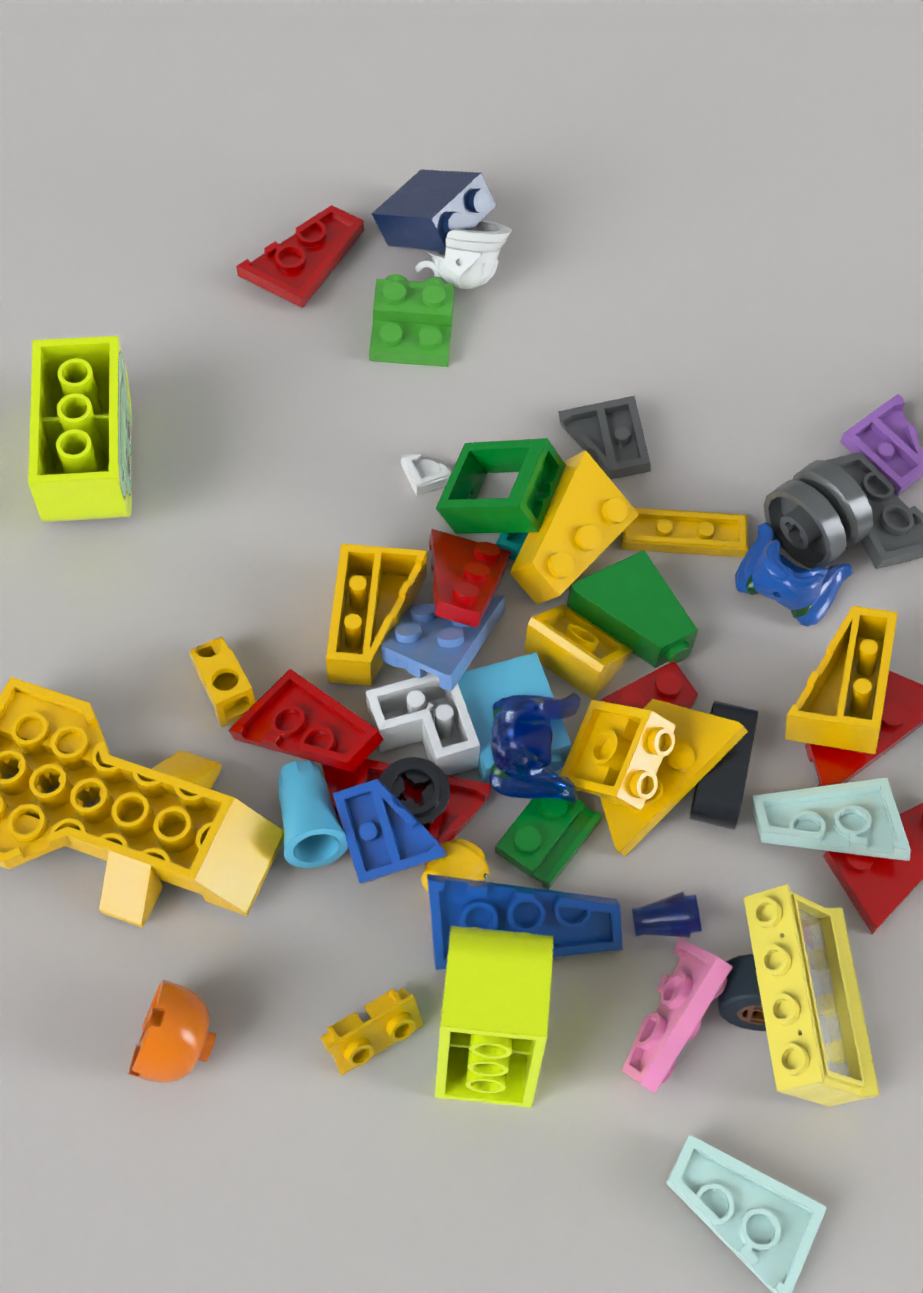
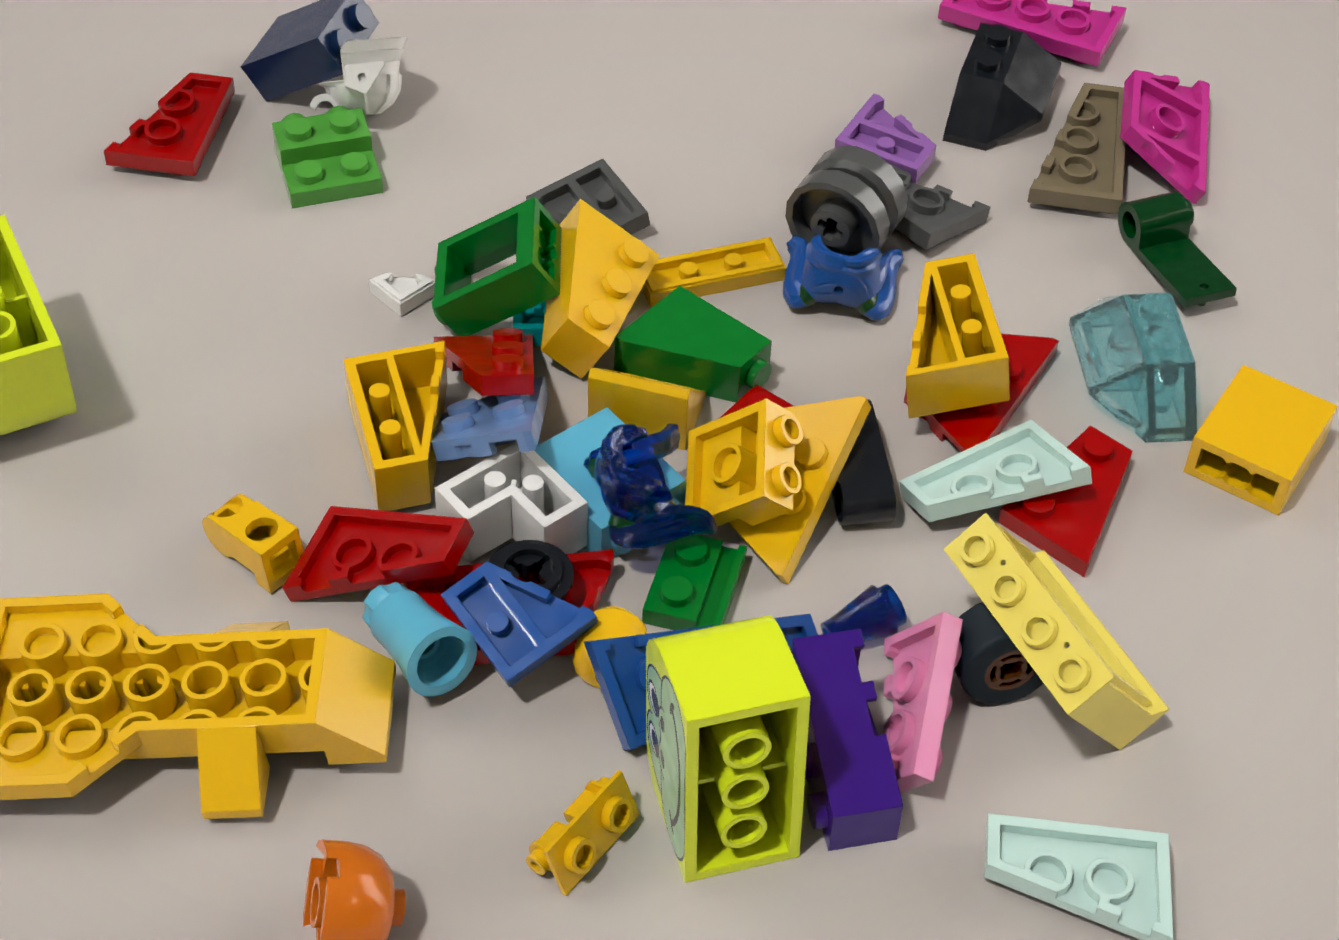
camera: 20 degrees left, 15 degrees down
(595, 1031) = (846, 761): none -> dark purple wedge

